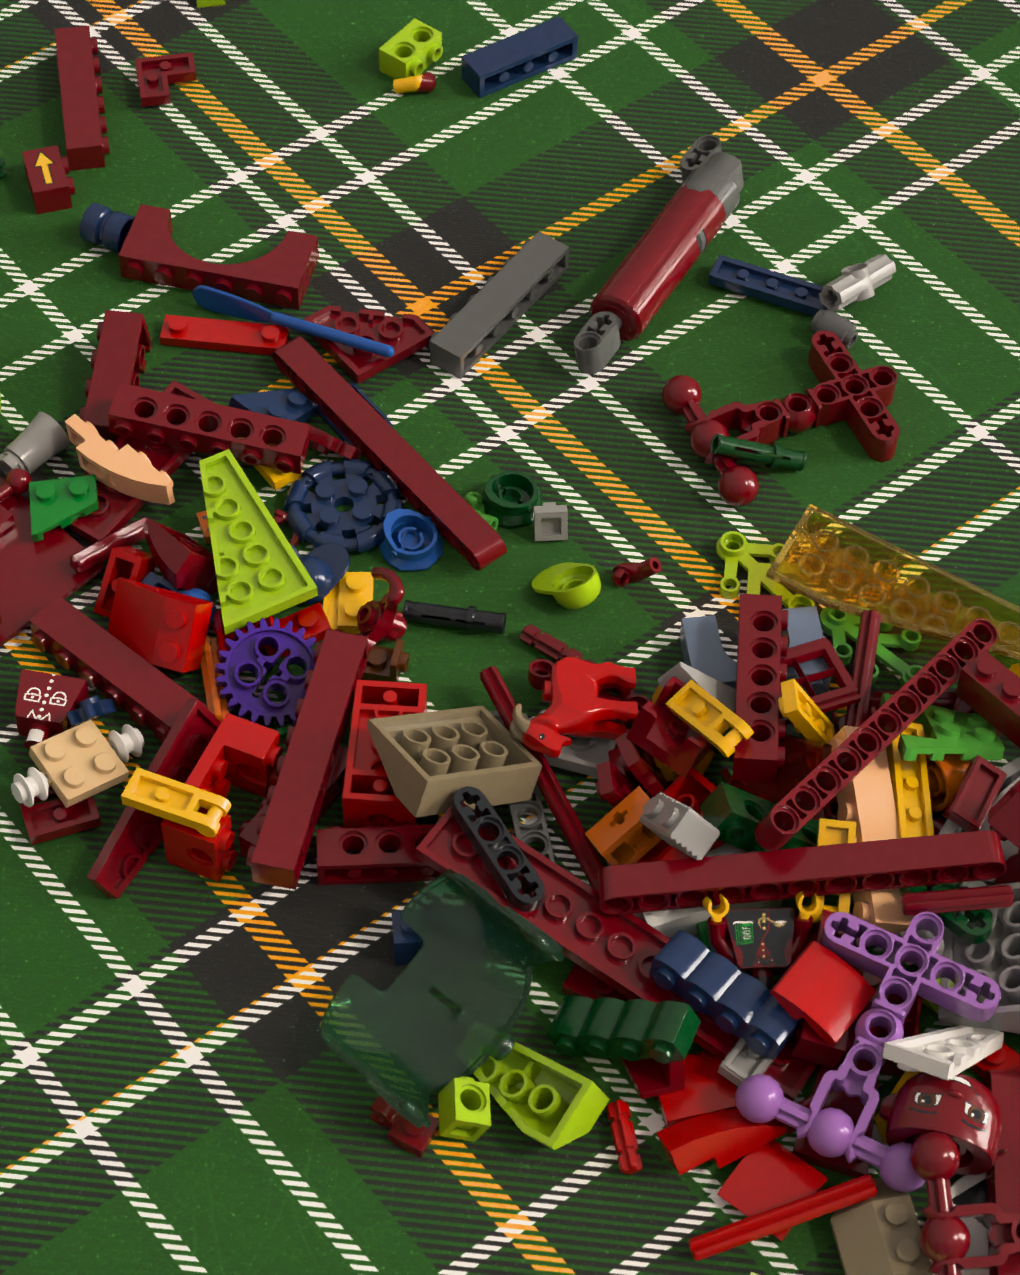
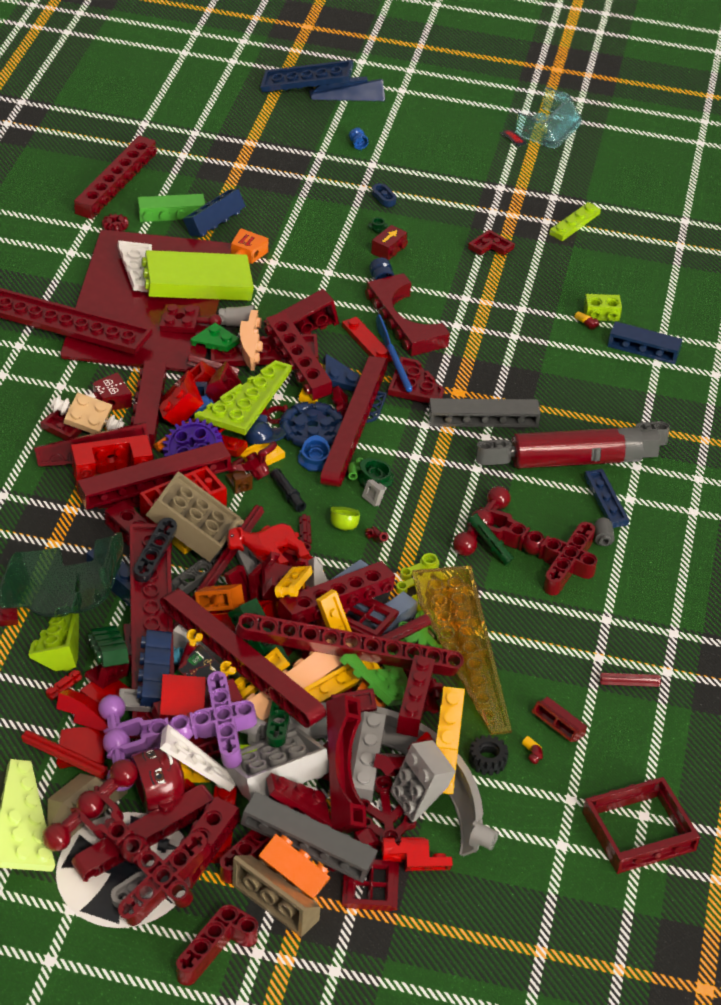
camera: 50 degrees right, 10 degrees down
(80, 98) = (447, 227): dark red brick -> none
(91, 709) = (118, 404): dark blue plate -> none
(175, 801) = (82, 440): yellow plate -> none
(459, 1121) = (24, 628): lime brick -> none
(679, 825) = (221, 597): light grey brick -> none
(857, 282) = (641, 523): light grey piece -> none
(957, 899) = (278, 718): dark red axle -> none

